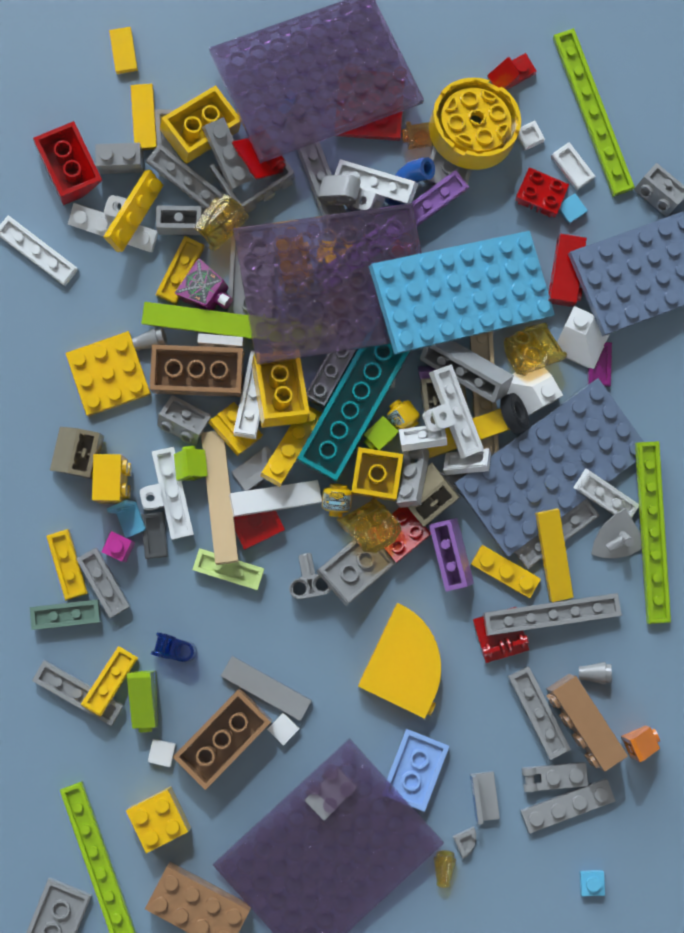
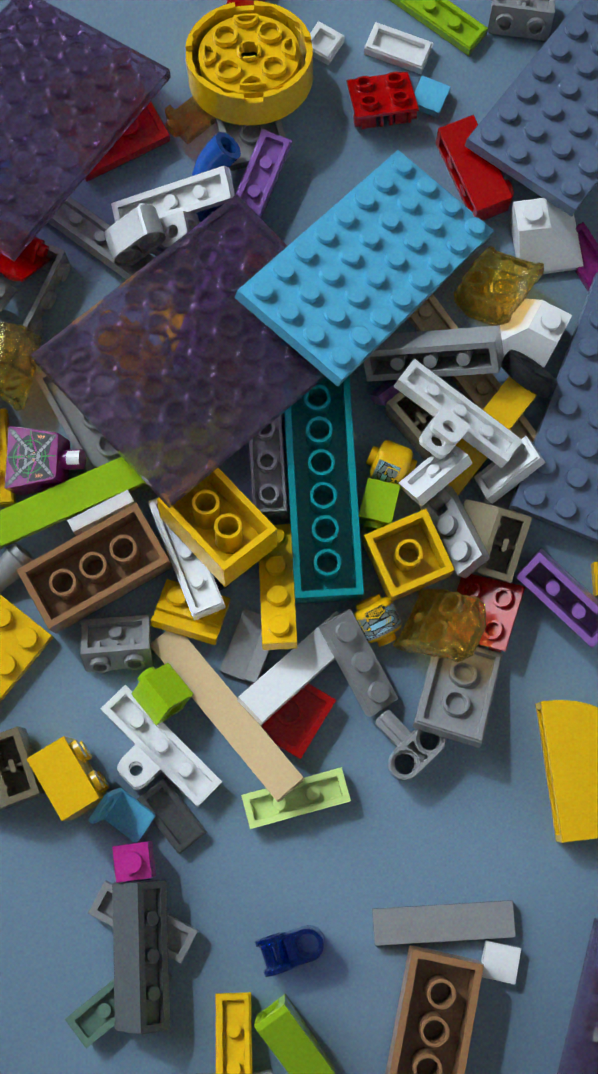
camera: 30 degrees left, 5 degrees down
(66, 565) = (76, 926): yellow tile -> none
(90, 599) = (140, 957): none -> dark grey panel
(310, 516) = (358, 662): none -> light grey plate

